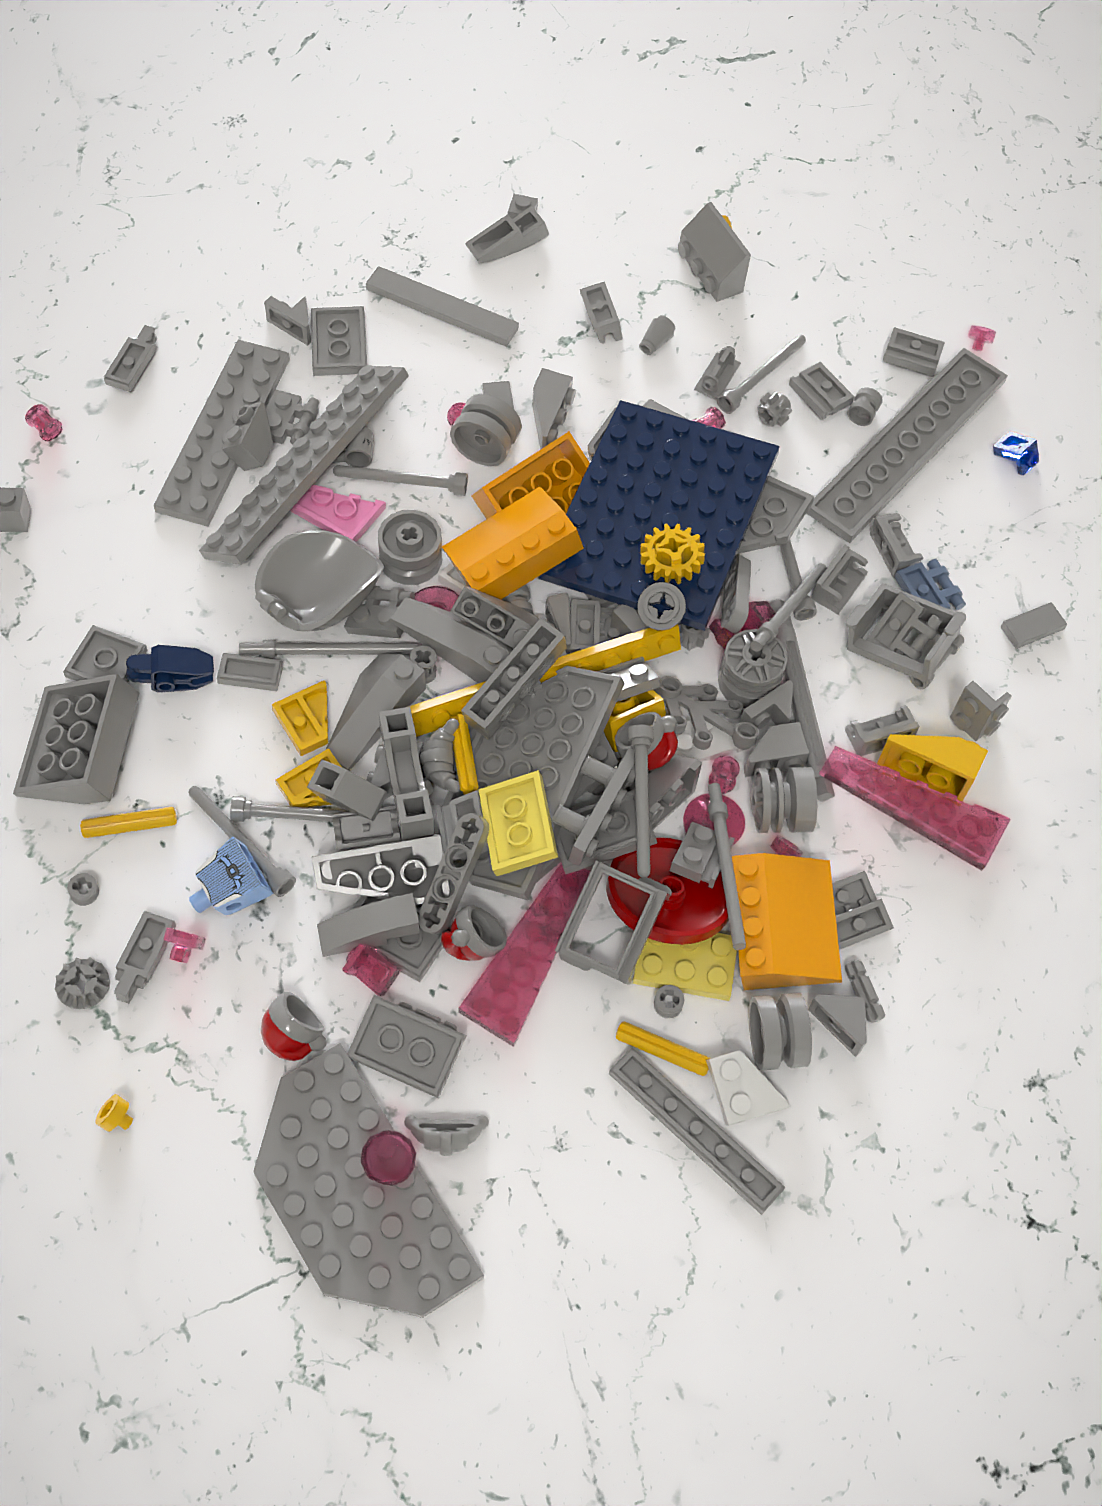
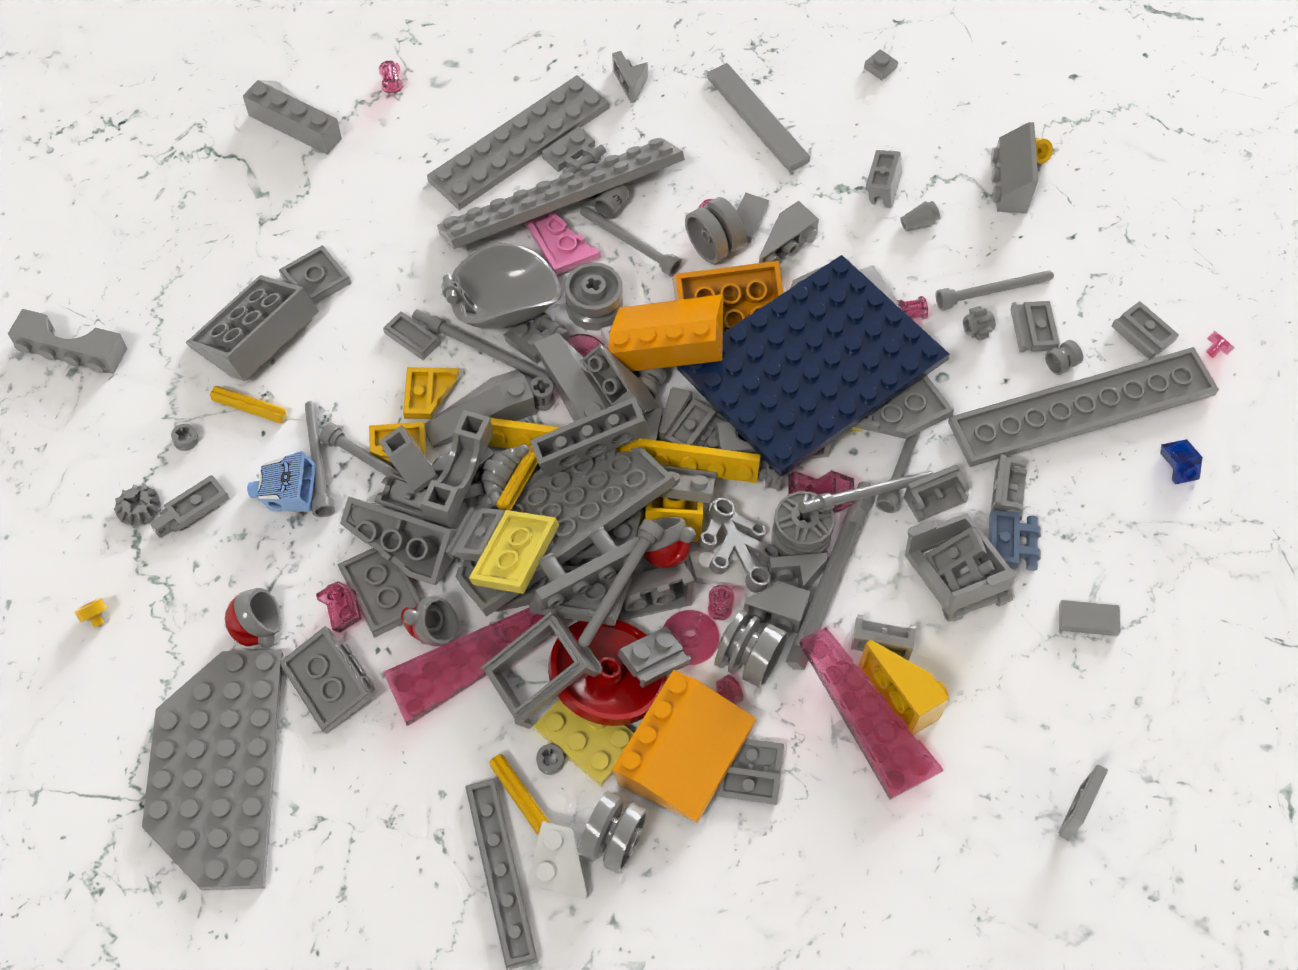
camera: 35 degrees right, 0 degrees up
(132, 360) = (487, 56): light grey hinge -> none
(171, 668) = (353, 304): dark blue hinge -> none
(183, 943) = (222, 513): clear pink tile -> none
(250, 437) = (529, 155): light grey slope -> none
(338, 340) = (656, 108): light grey tile -> none
(369, 925) = (359, 572): light grey slope -> none
(388, 1157) = (246, 753): clear pink hair -> none
(446, 1135) = (309, 764): light grey piece -> none
(448, 871) = (444, 569): light grey beam -> none
(508, 236) = (850, 82): light grey slope -> none
(653, 595) = (751, 425): light grey gear -> none
(672, 553) = (788, 398): yellow gear -> none
(718, 373) = (953, 271): light grey hinge -> none
(718, 815) = (688, 631): light grey bar -> none
(736, 595) = (830, 459): light grey beam -> none
(843, 1018) = (681, 853): light grey slope -> none
(864, 988) = (715, 842): light grey axle -> none
(978, 712) = (974, 667): light grey bracket -> none

